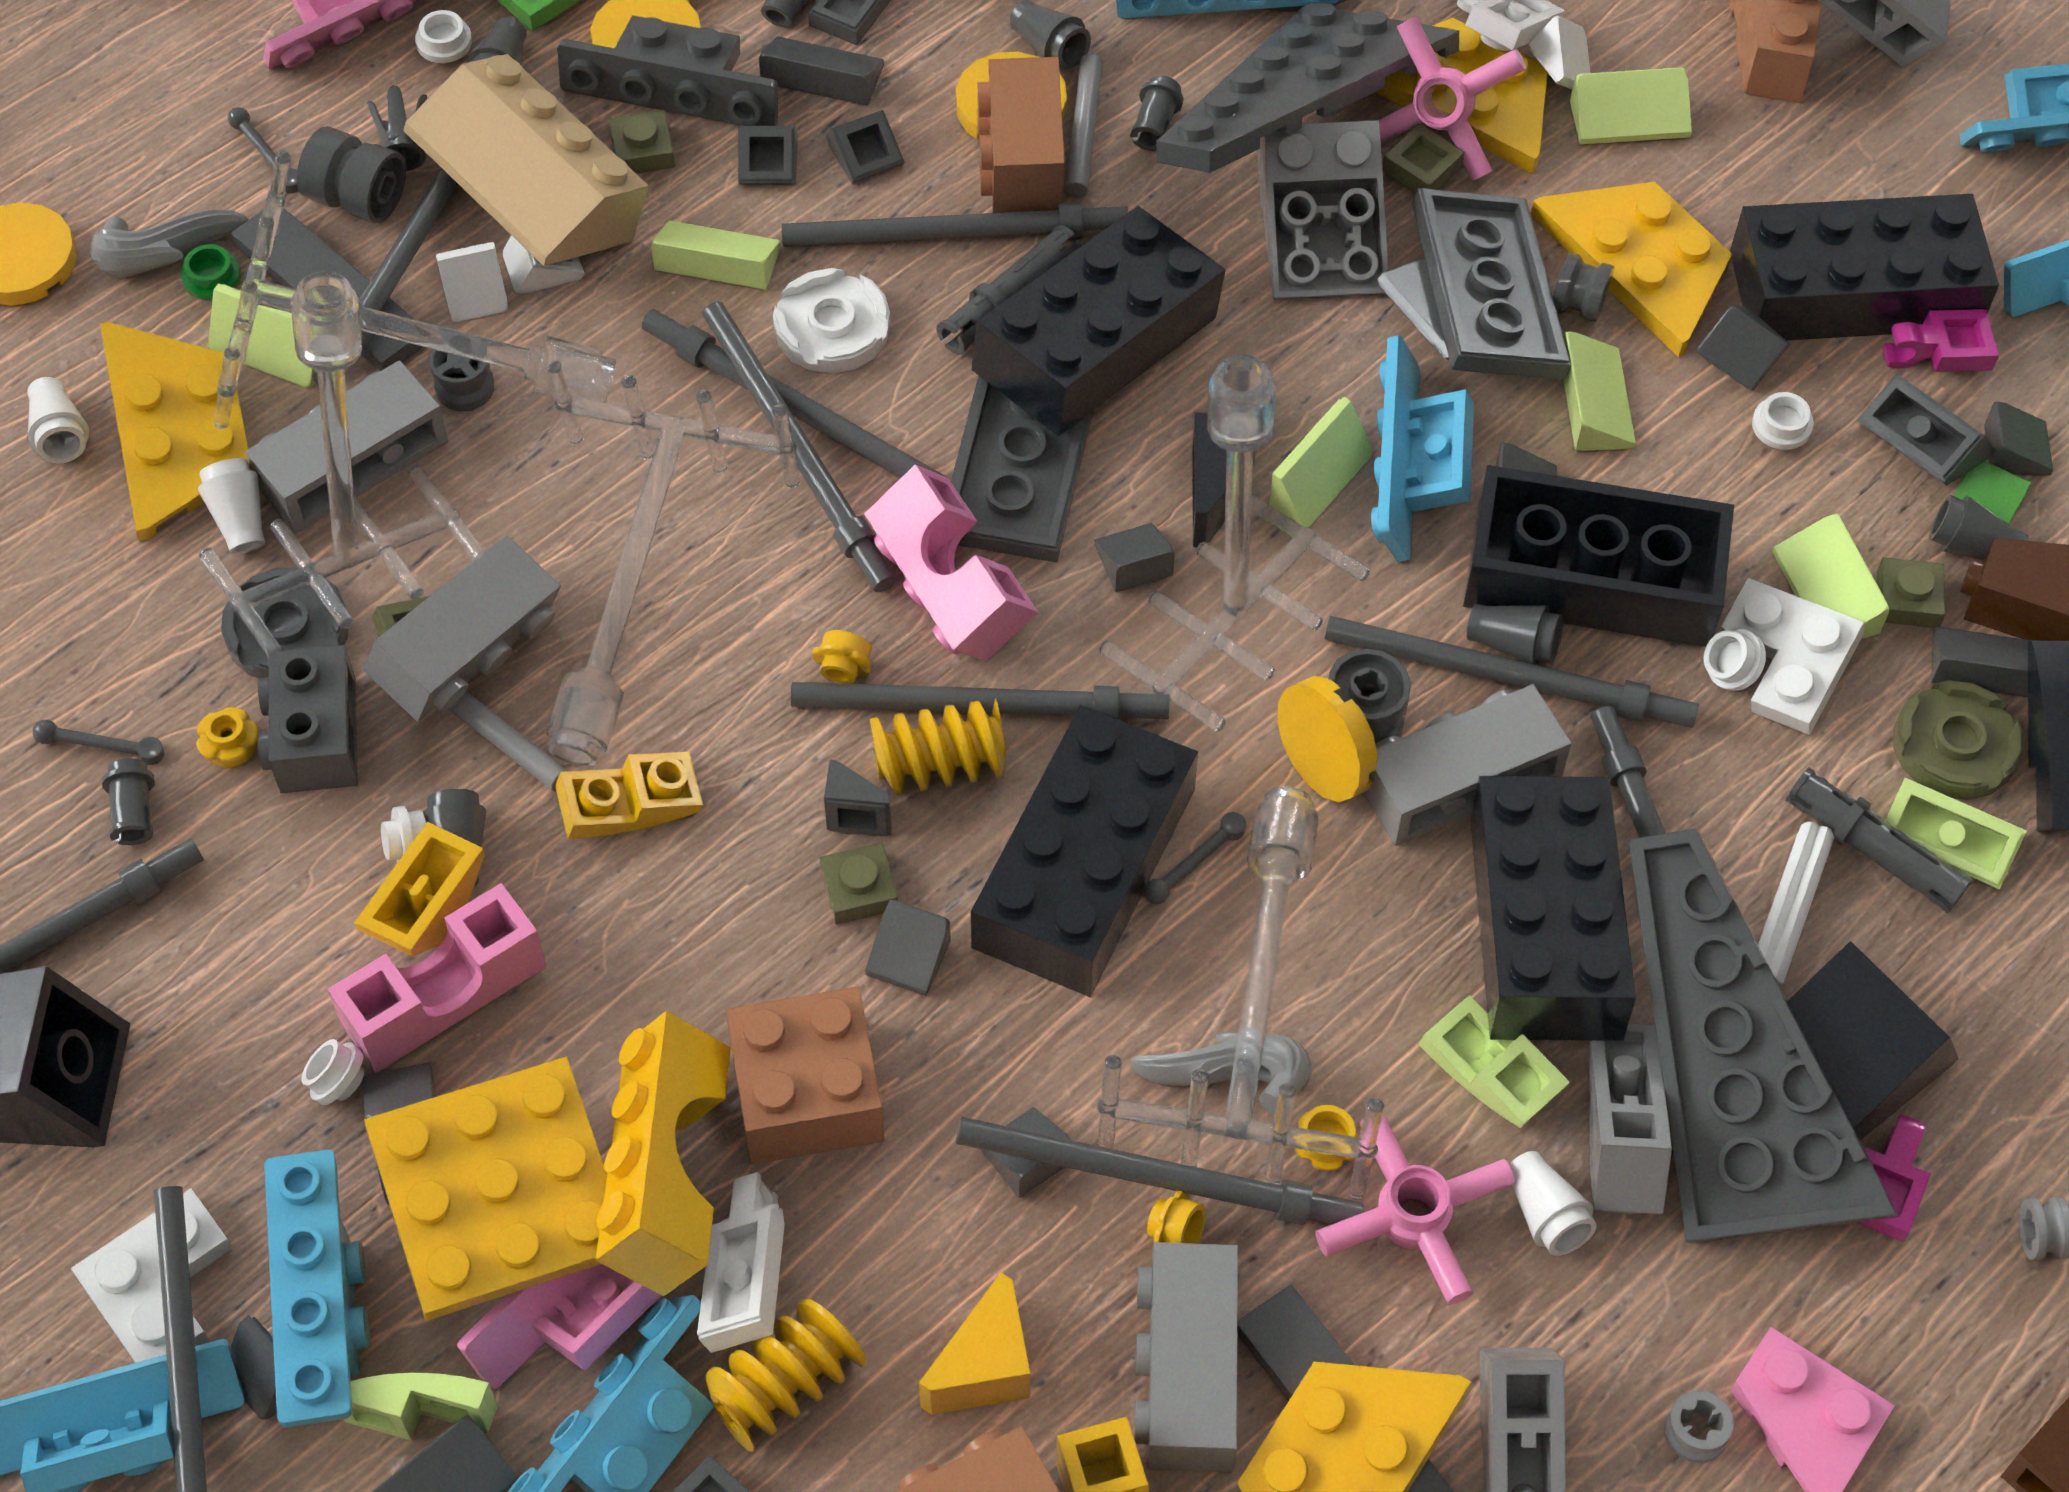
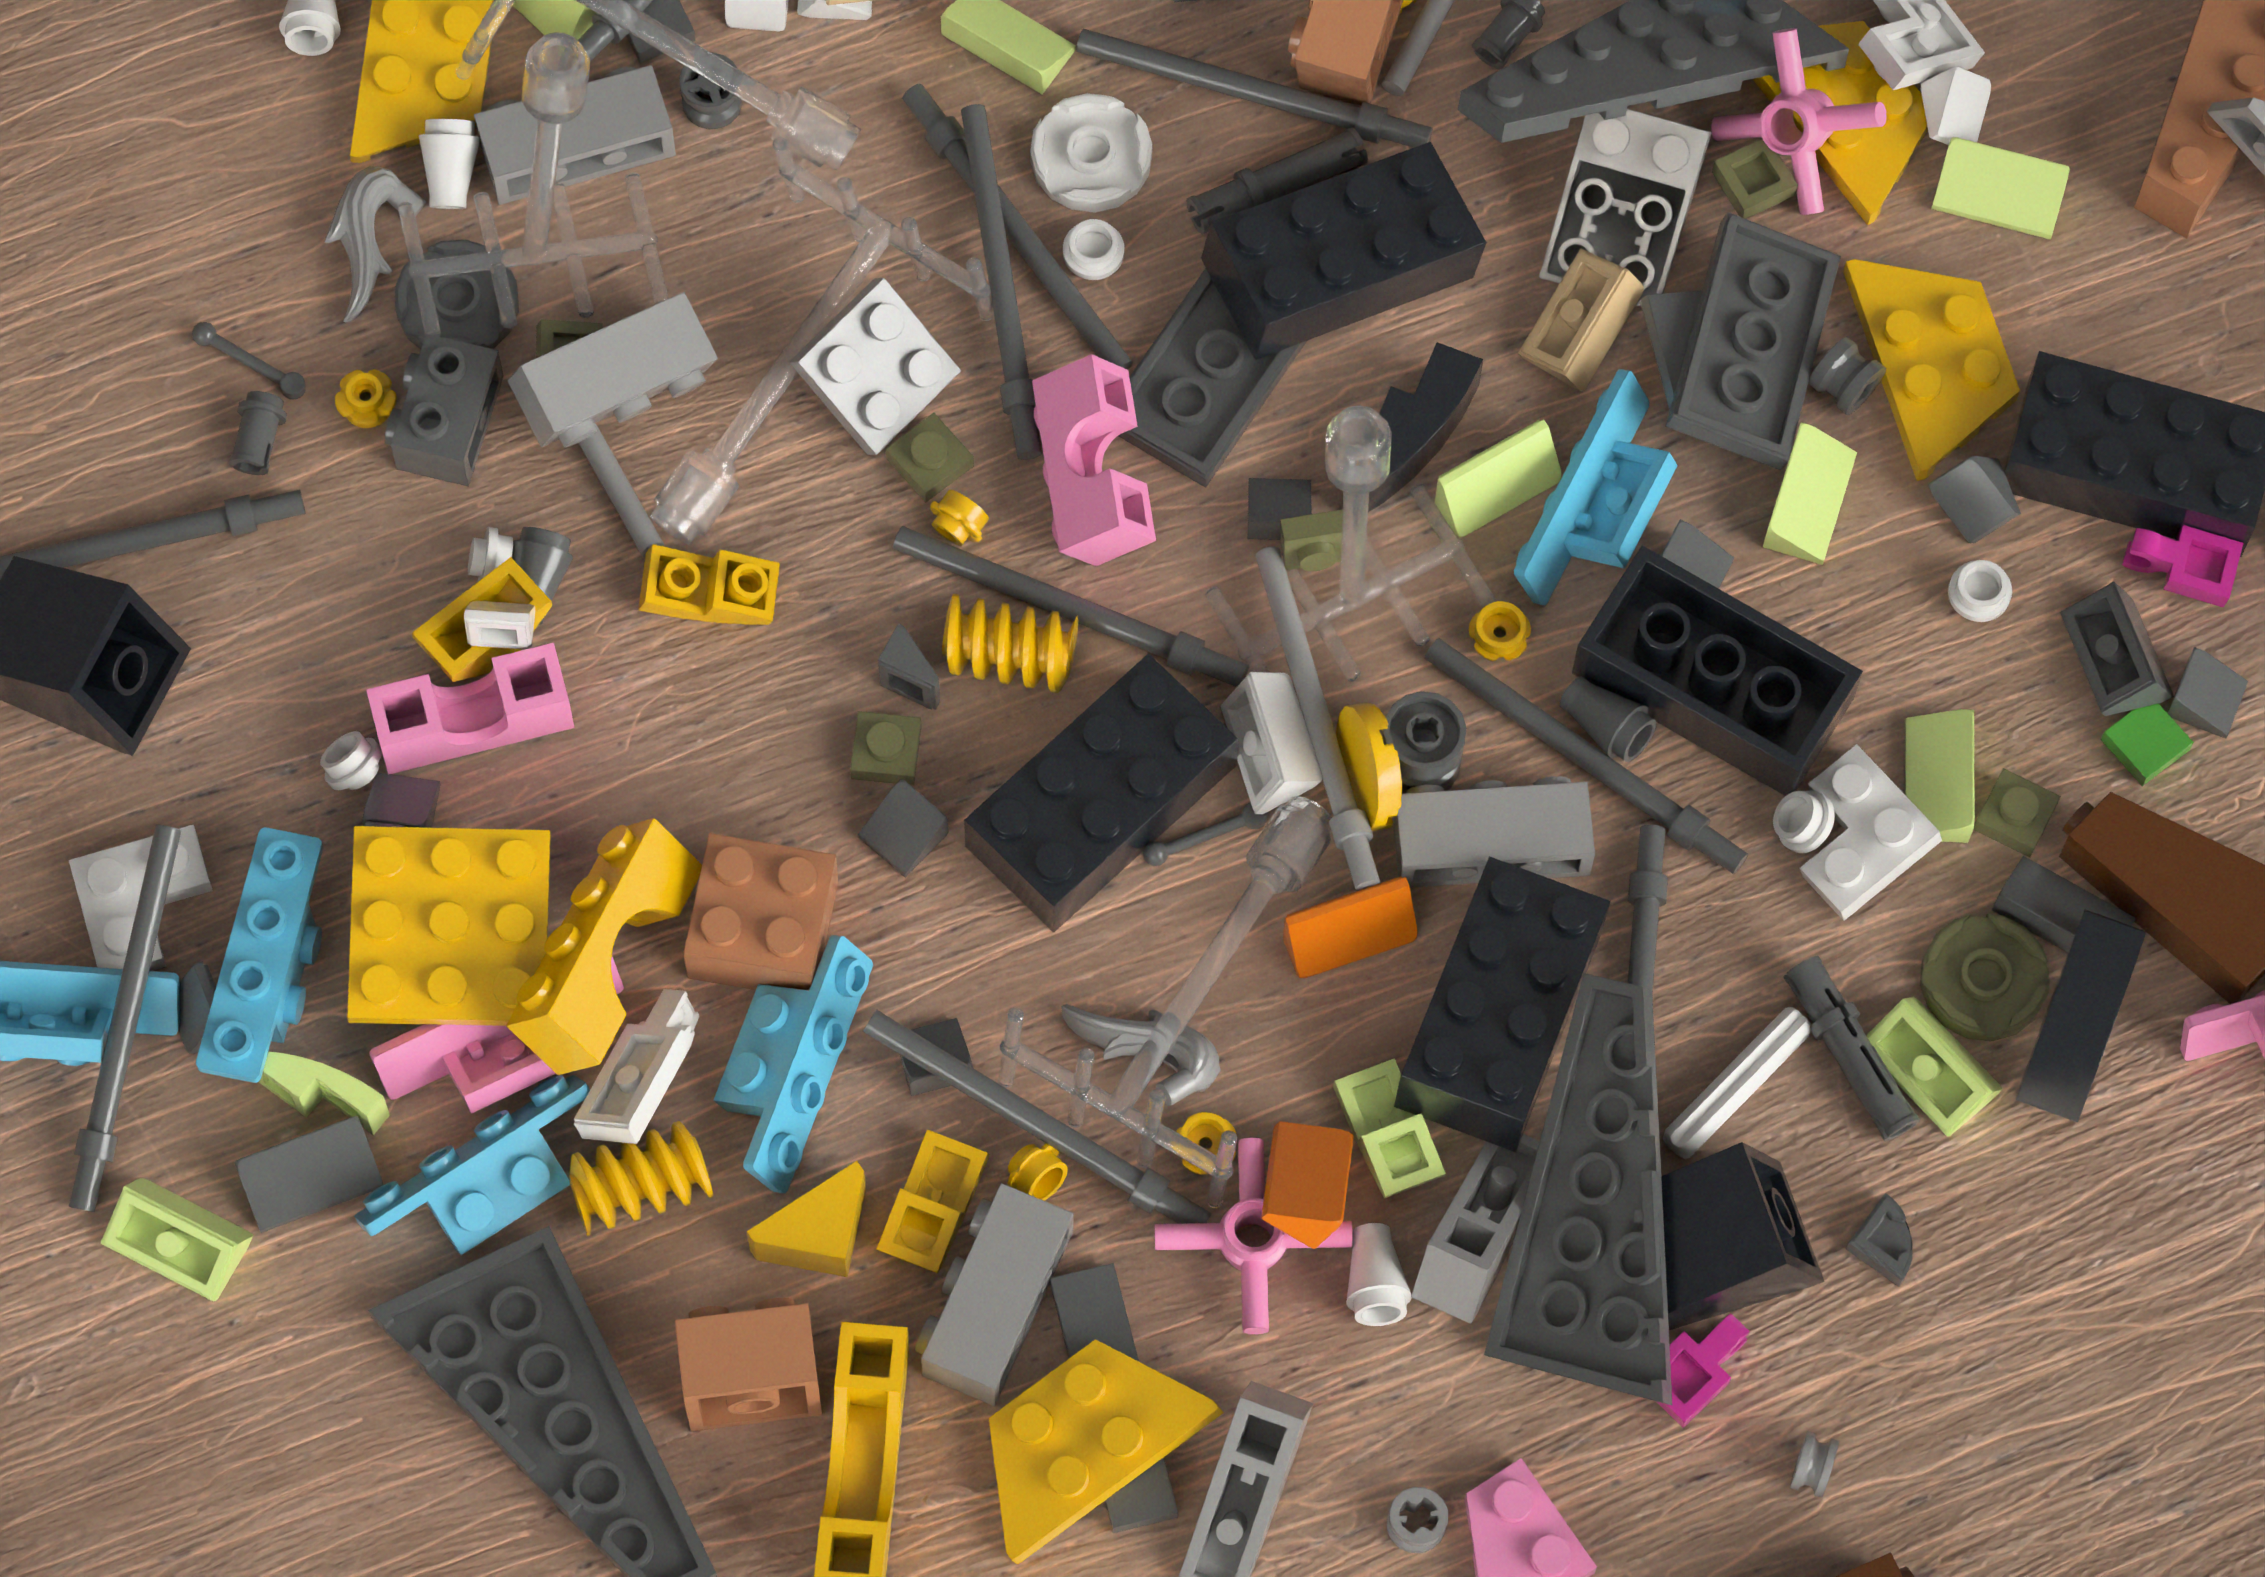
camera: 20 degrees right, 10 degrees up
(162, 587) = (355, 228): none -> light grey piece
(442, 885) = (499, 624): none -> white slope
(711, 549) = (875, 366): none -> plate
(792, 616) = (929, 457): none -> olive plate
(869, 395) = (1093, 249): none -> white plate
(884, 1205) = (789, 1057): none -> medium azure bracket
(1086, 1290) = (933, 1201): none -> yellow slope
(1183, 564) = (1311, 540): none -> olive plate
(1233, 758) = (1272, 740): none -> white slope
(1331, 314) = (1582, 319): none -> tan slope
(1332, 795) = (1349, 824): none -> light grey bar
(1371, 892) = (1350, 927): none -> orange slope
(1384, 578) = (1503, 616): none -> yellow plate
(1450, 1133) = (1307, 1181): none -> orange slope
(1969, 528) = (2105, 767): dark grey cone -> none
(1995, 1002) = (1884, 1241): none -> dark grey tile

